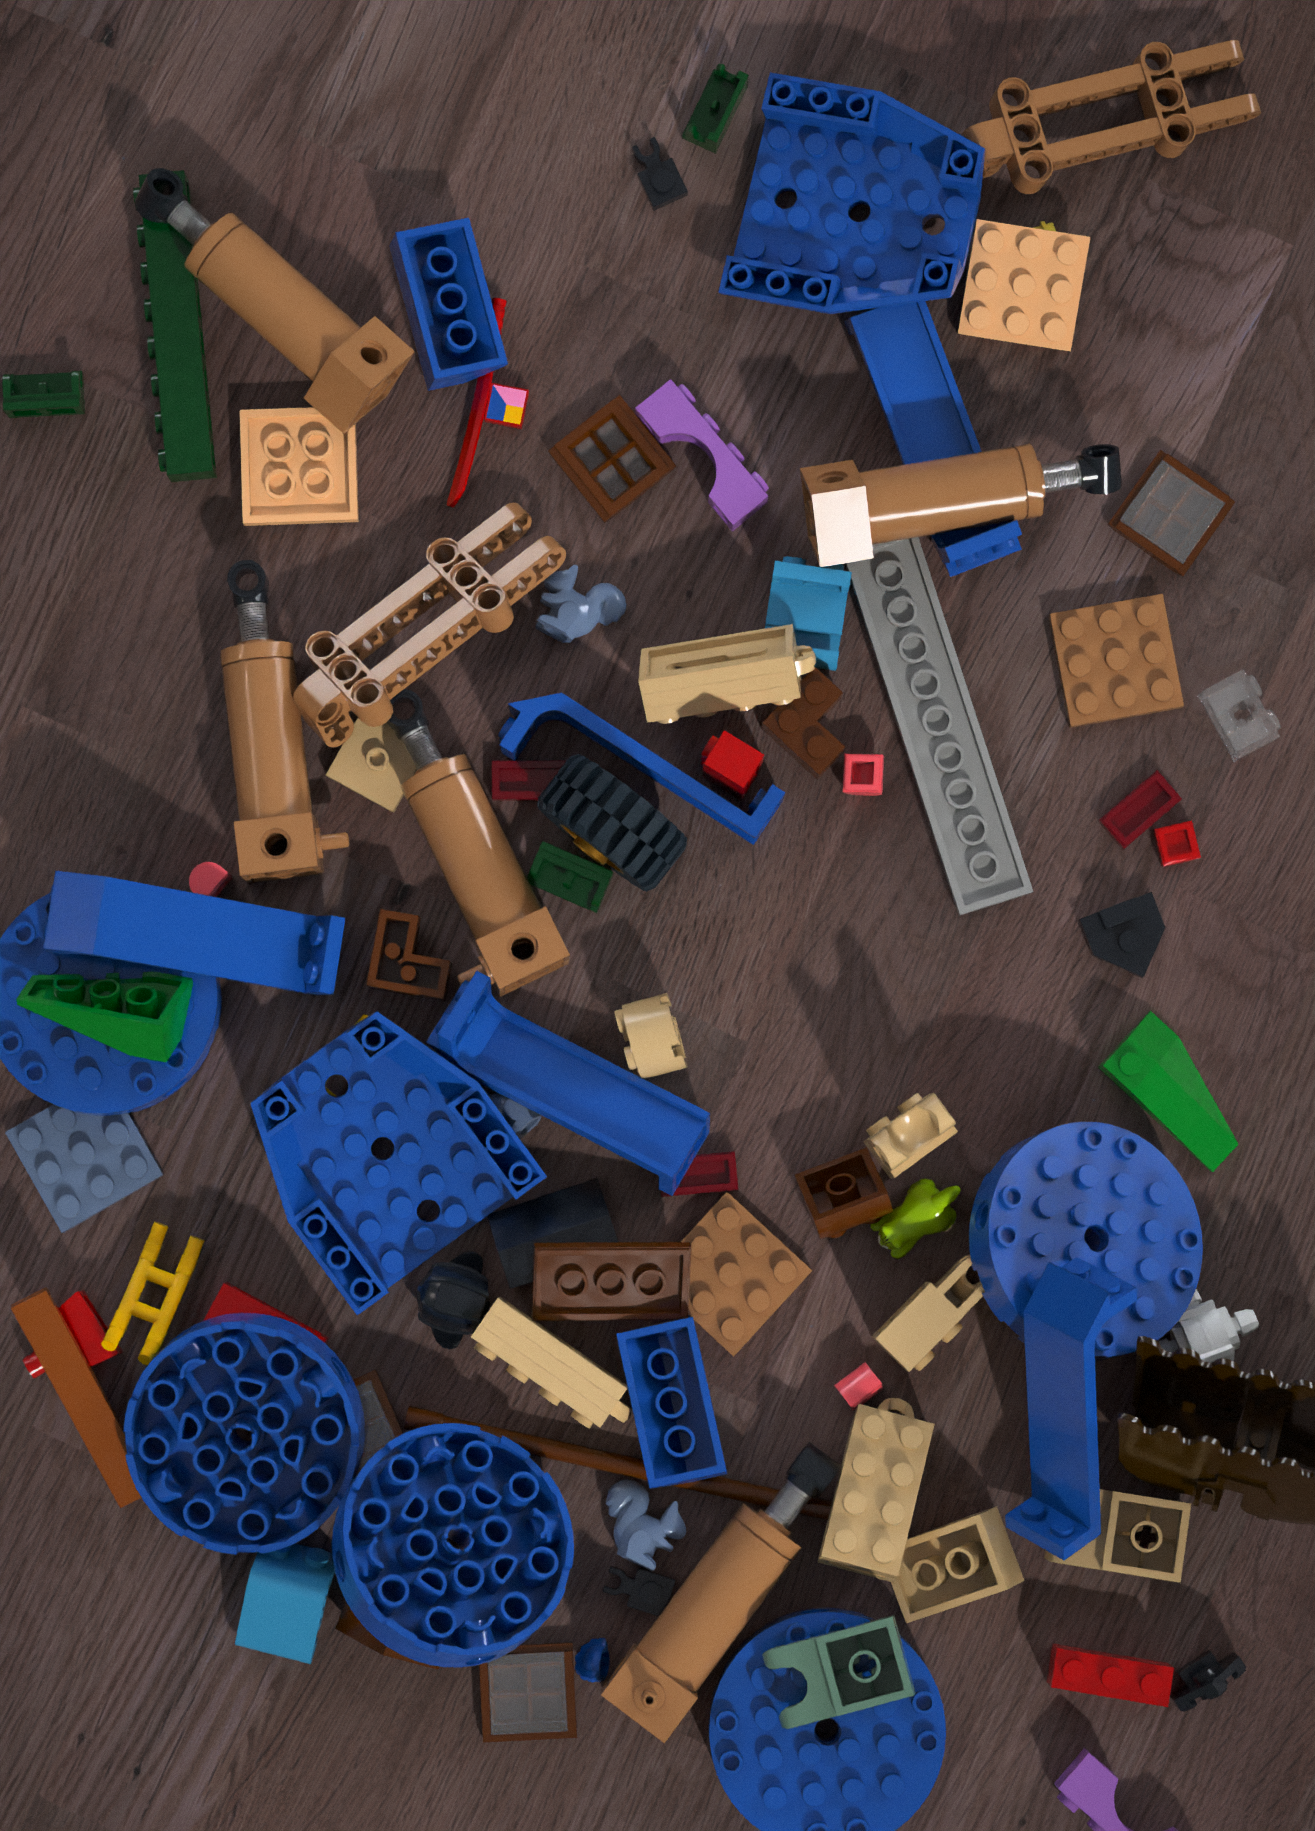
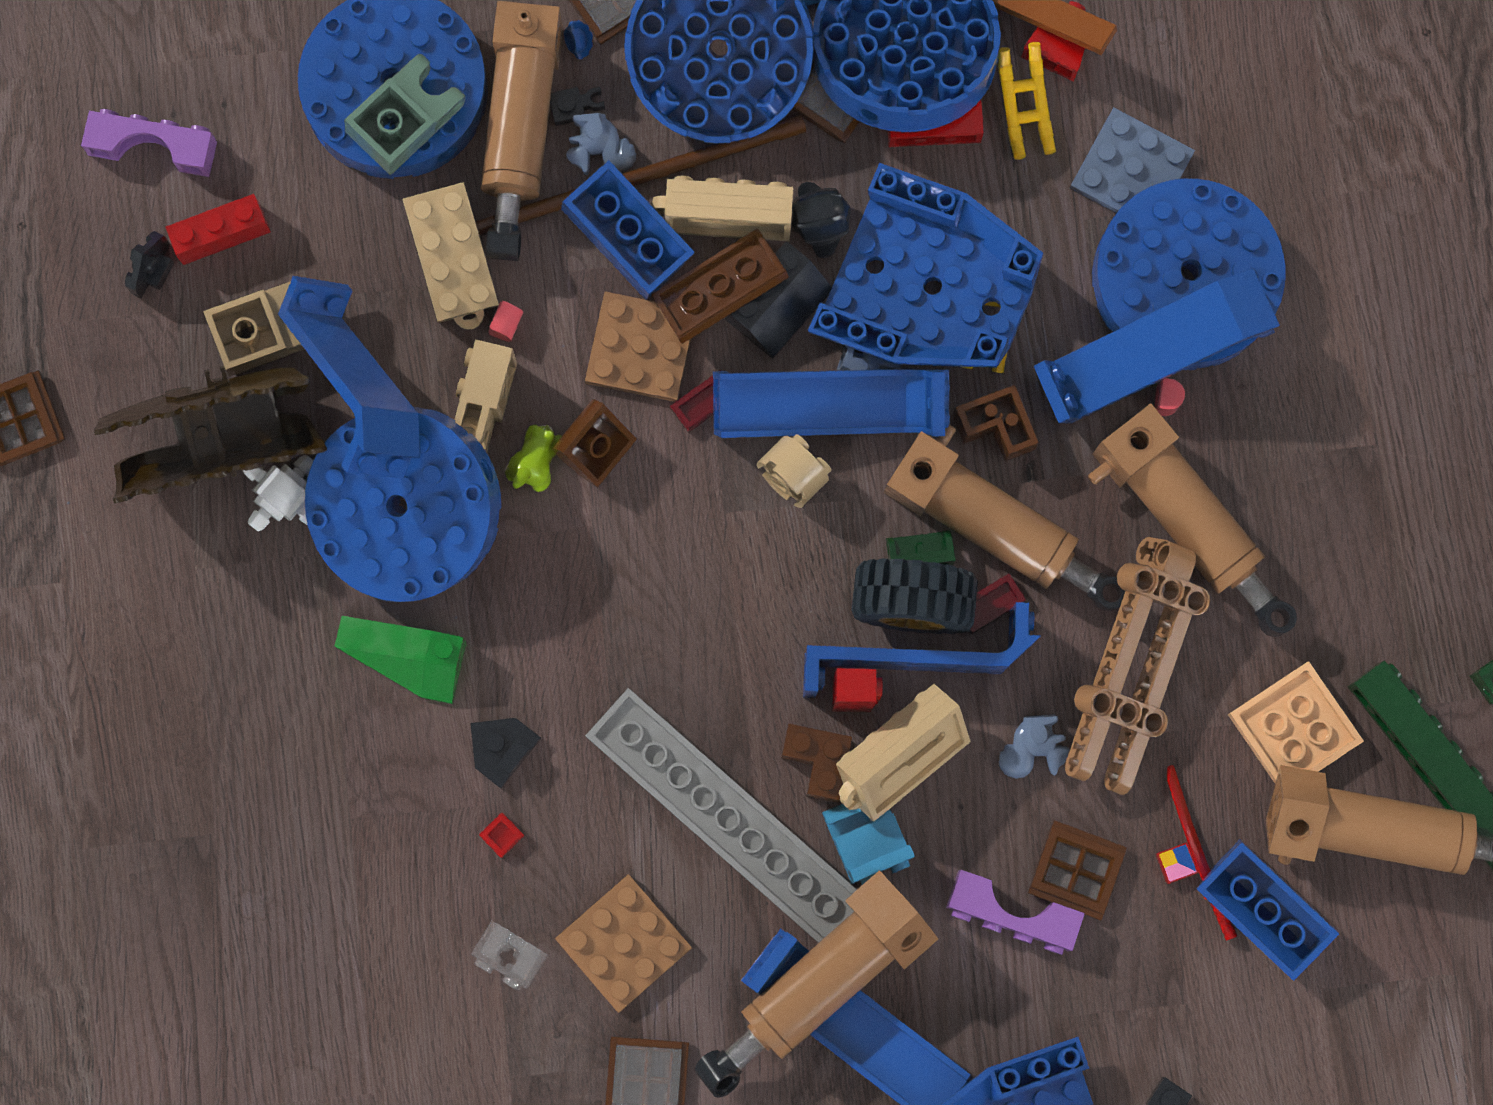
camera: 145 degrees right, 5 degrees down
(130, 1014) = (1167, 263): green wedge -> none
(373, 764) = (1106, 545): tan plate -> none
(863, 774) = (757, 748): coral brick -> none
(911, 1135) = (572, 506): tan brick -> none
(956, 1565) = (366, 241): tan slope -> none
(1140, 809) = (542, 844): dark red tile -> none

